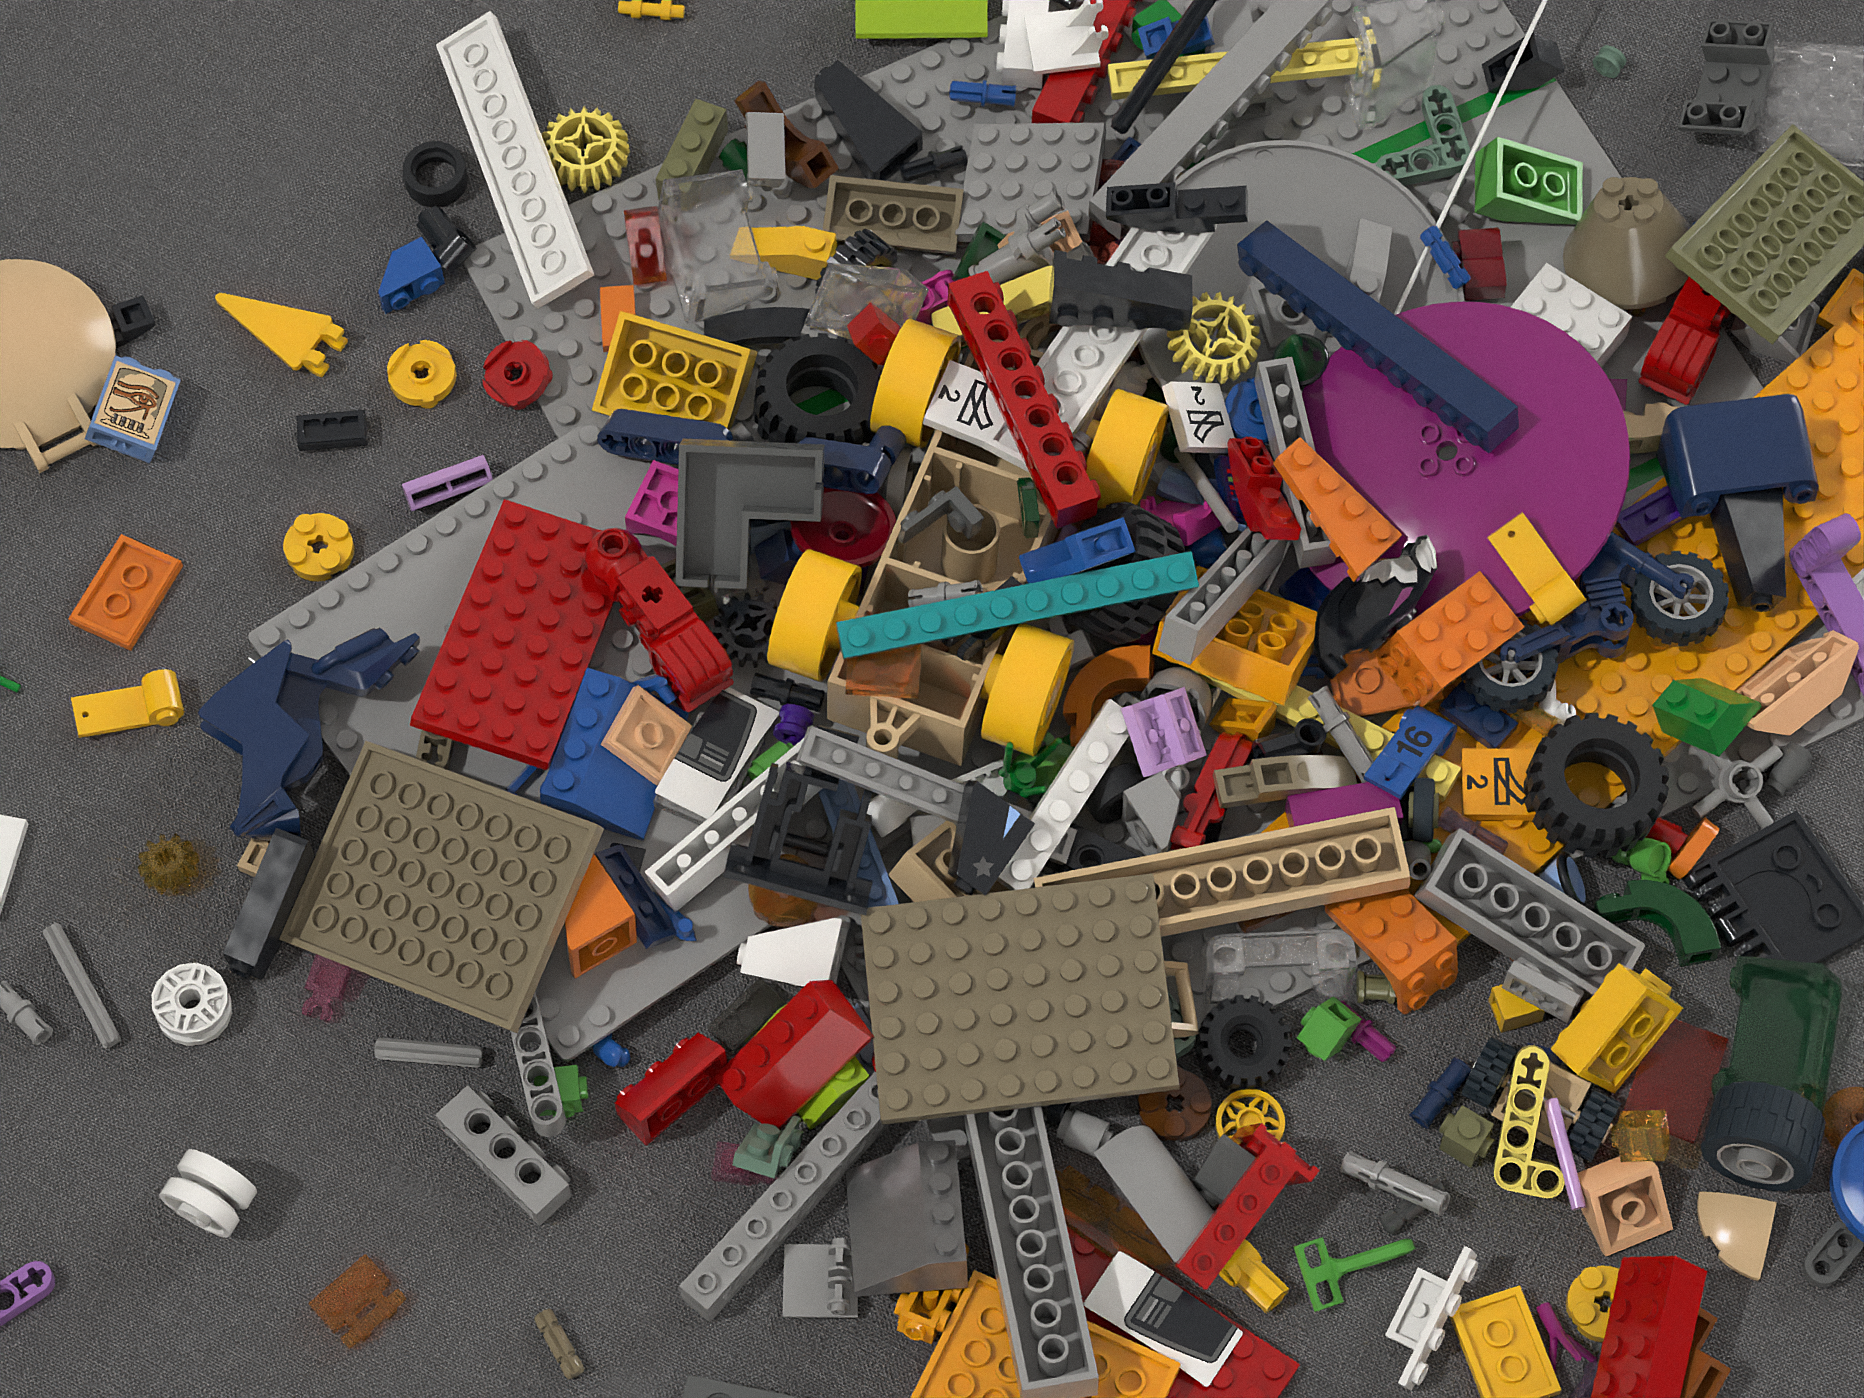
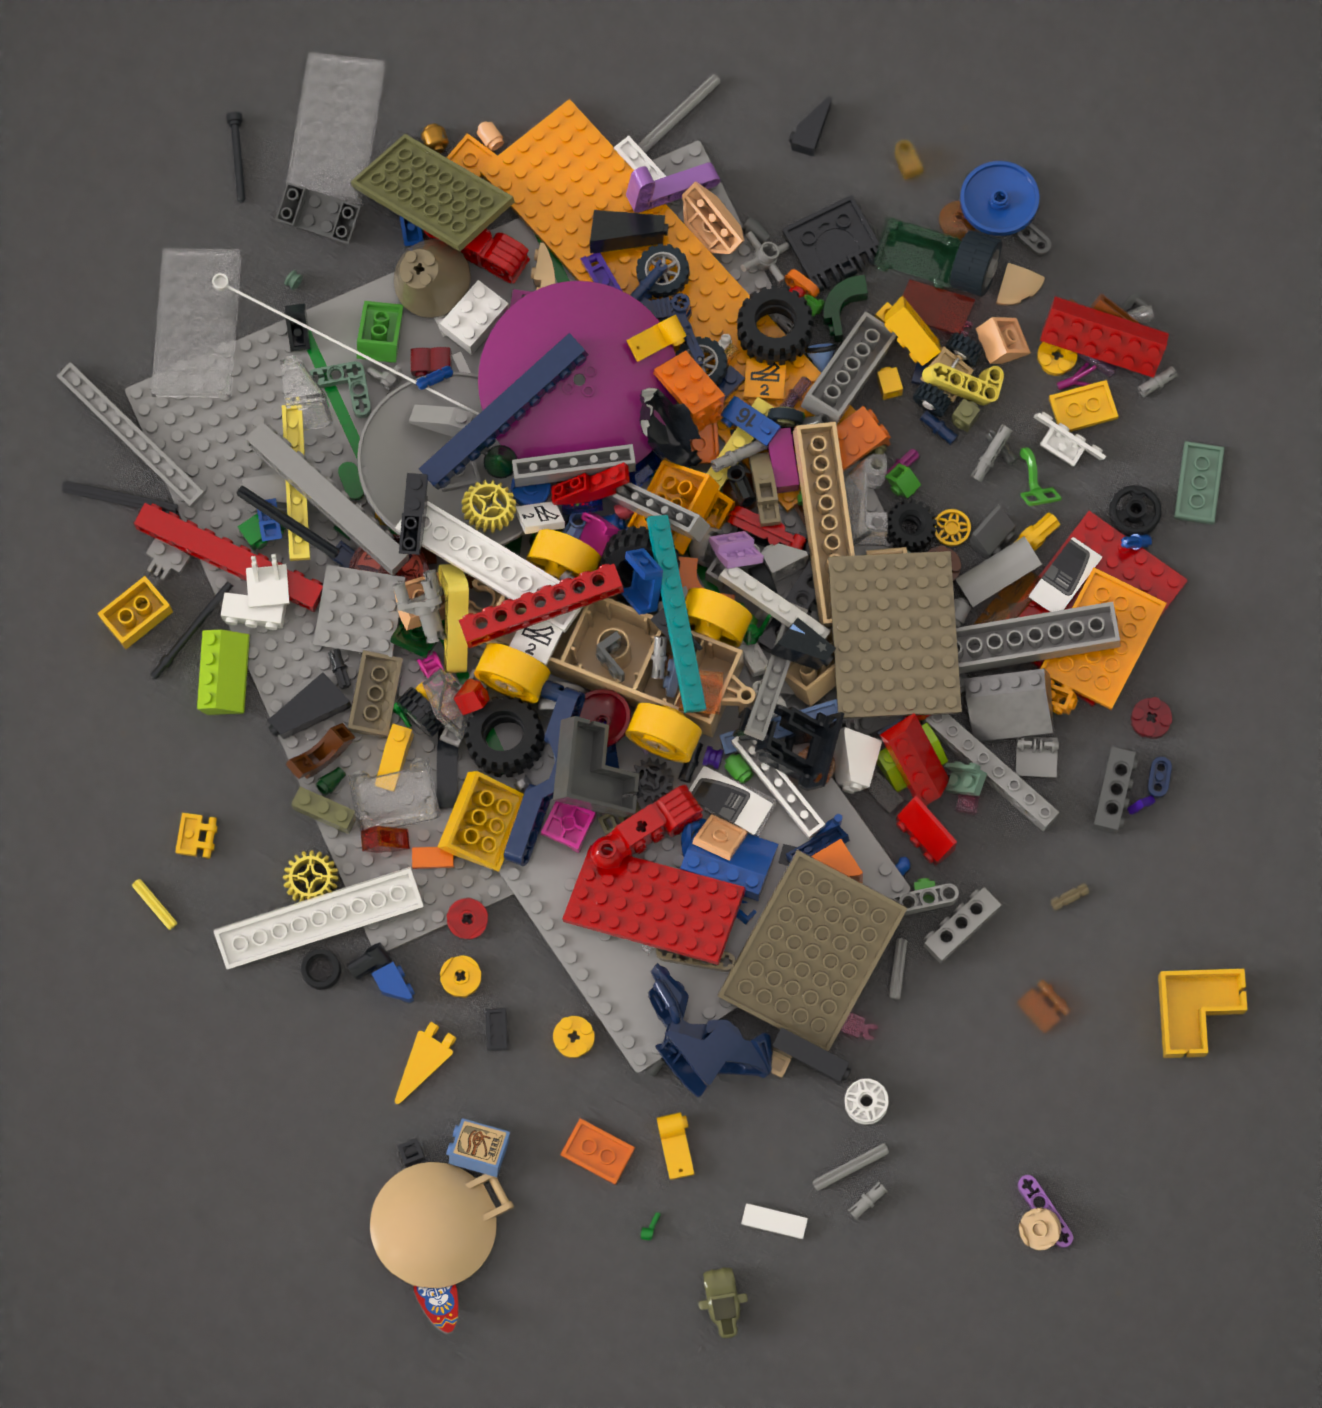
camera: 85 degrees left, 10 degrees up
(162, 855) = (786, 1115): clear yellow gear -> none
(208, 1193) = (986, 1085): white wheel -> none
(445, 476) = (538, 959): lavender piece -> none
(765, 149) = (333, 760): light grey hinge -> none
(982, 93) = (291, 638): blue axle -> none
(1028, 507) = (604, 608): dark green tile -> none
(1117, 295) = (476, 546): black wedge -> none
(1207, 490) = (589, 515): light grey bar -> none
(1245, 1204) = (1012, 523): red bracket -> none
(1347, 518) = (611, 442): orange wing -> none
(1542, 989) = (889, 365): light grey bracket -> none
(1564, 1154) = (982, 363): lavender bar -> none
(1641, 1135) = (973, 324): clear yellow brick -> none
(1703, 713) = (732, 264): green slope -> none
(1737, 450) = (579, 230): dark blue windscreen -> none

